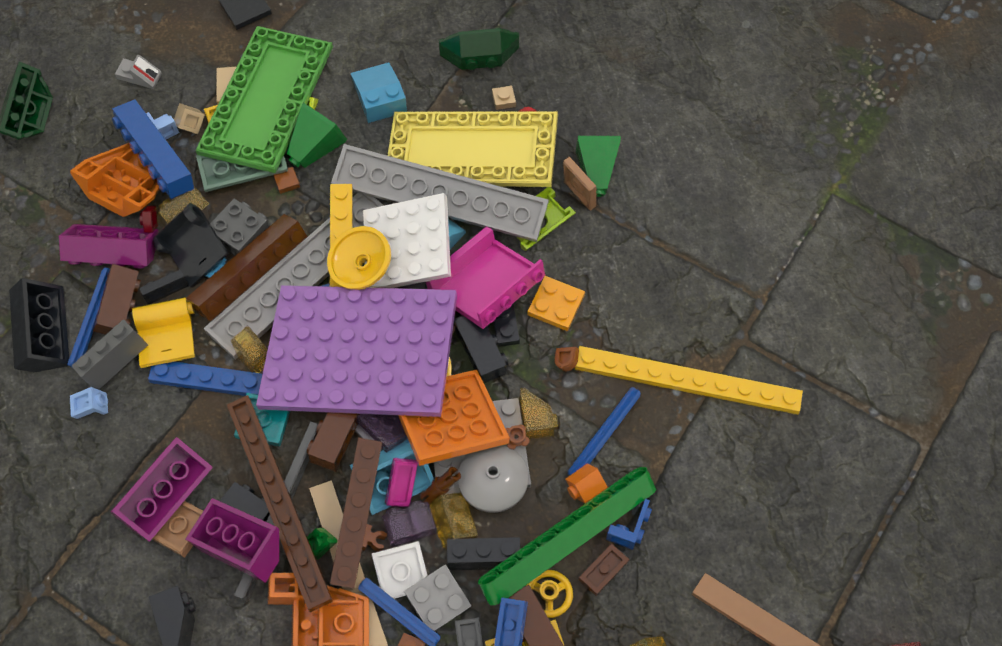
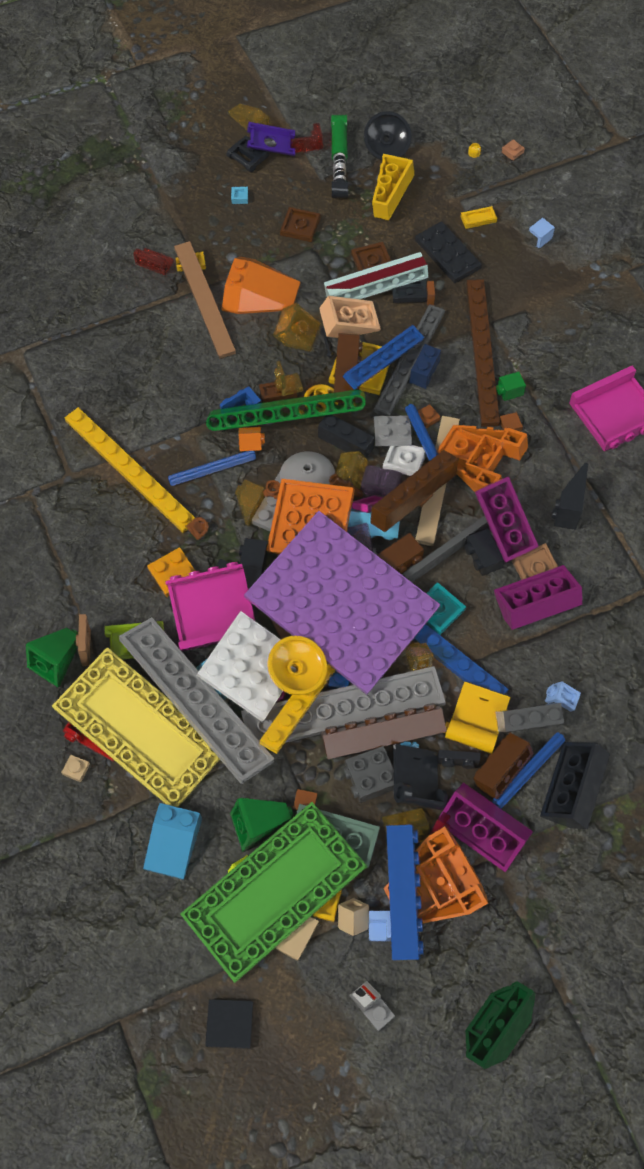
camera: 145 degrees left, 0 degrees up
(280, 504) = (461, 535): reddish brown plate -> none
(321, 541) = (447, 500): green tile -> none
(479, 48) = (60, 822): dark green wedge -> none
(596, 573) = (287, 384): none -> clear yellow bracket

